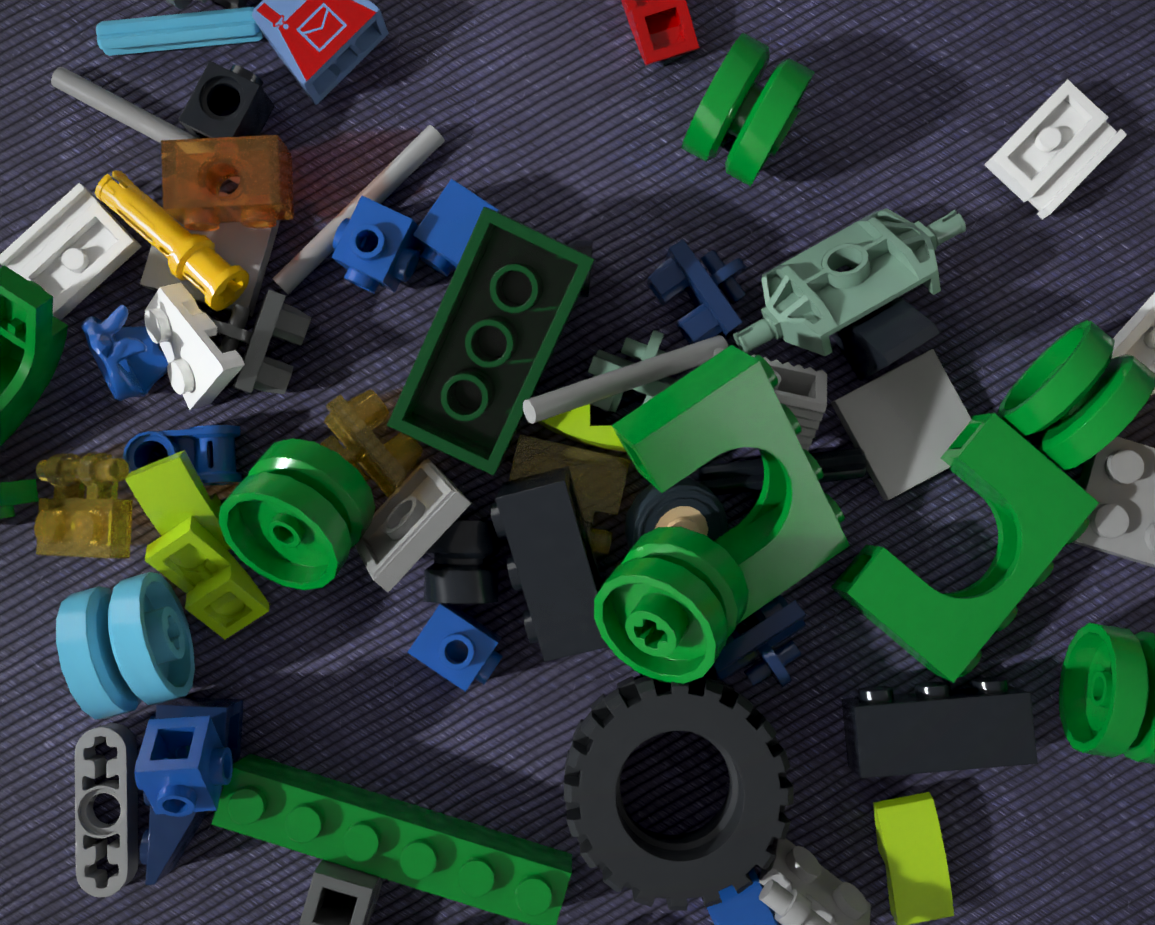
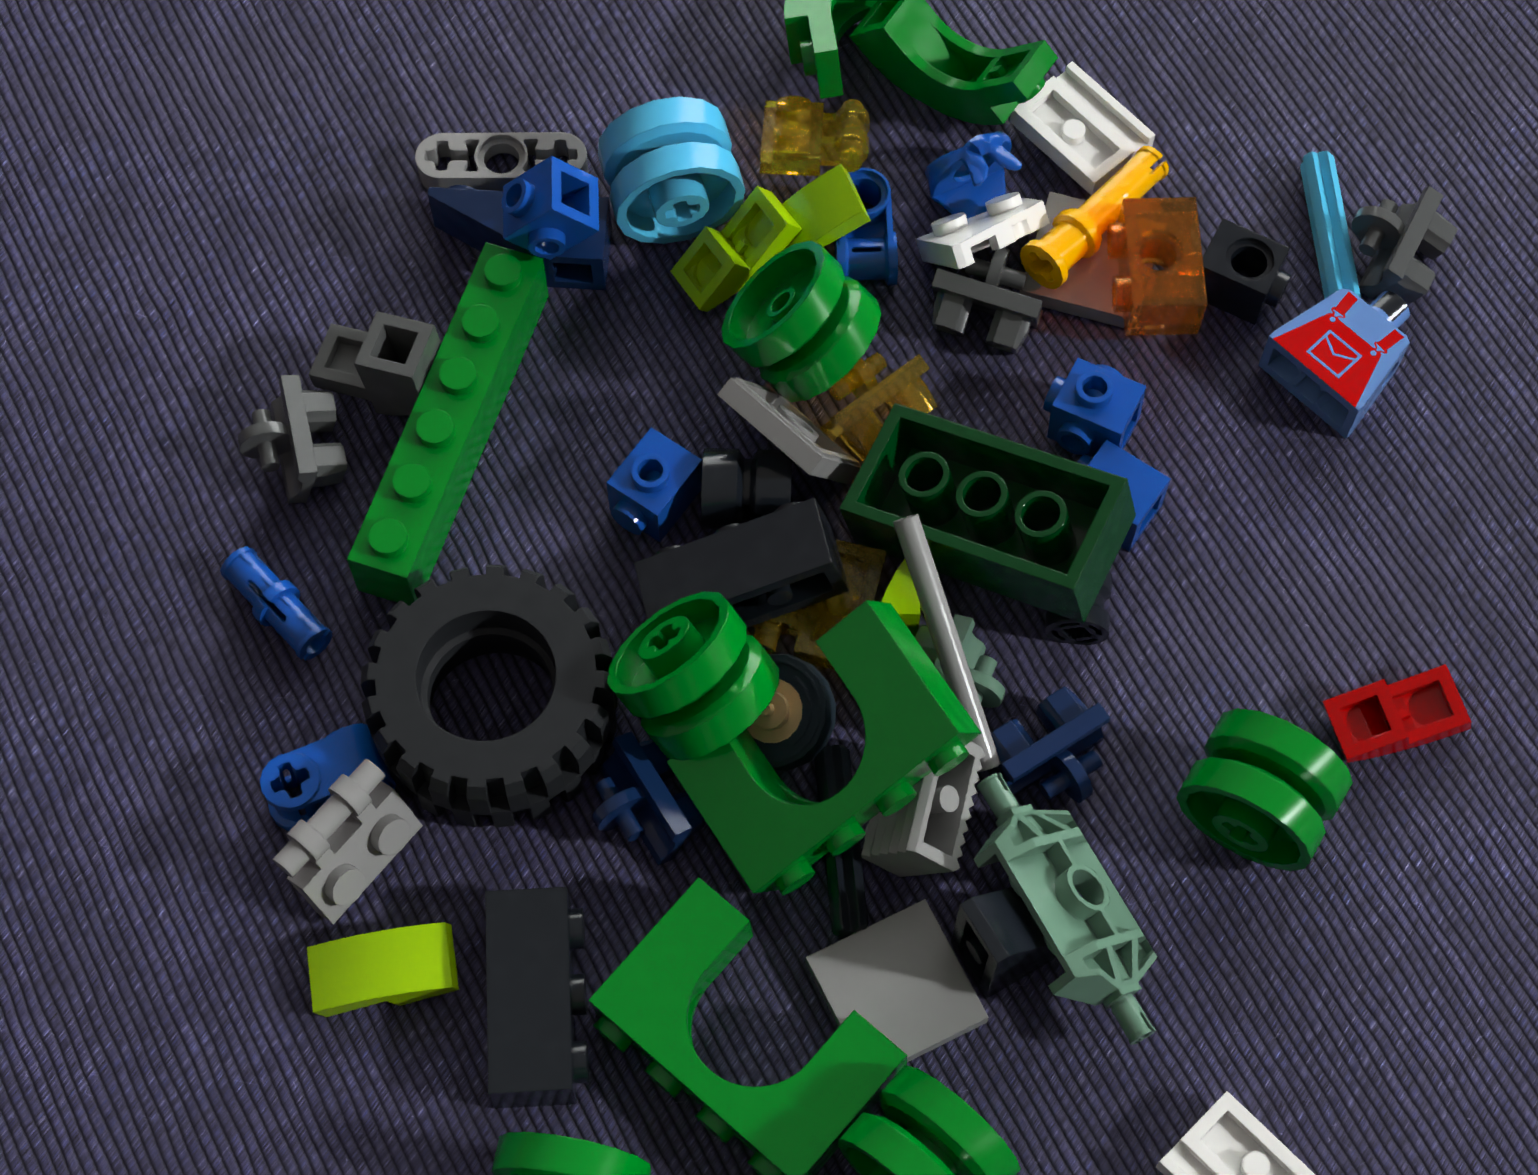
camera: 90 degrees right, 20 degrees down
(118, 108) = (1240, 176): light grey bar -> none
(377, 190) = (1152, 412): light grey bar -> none

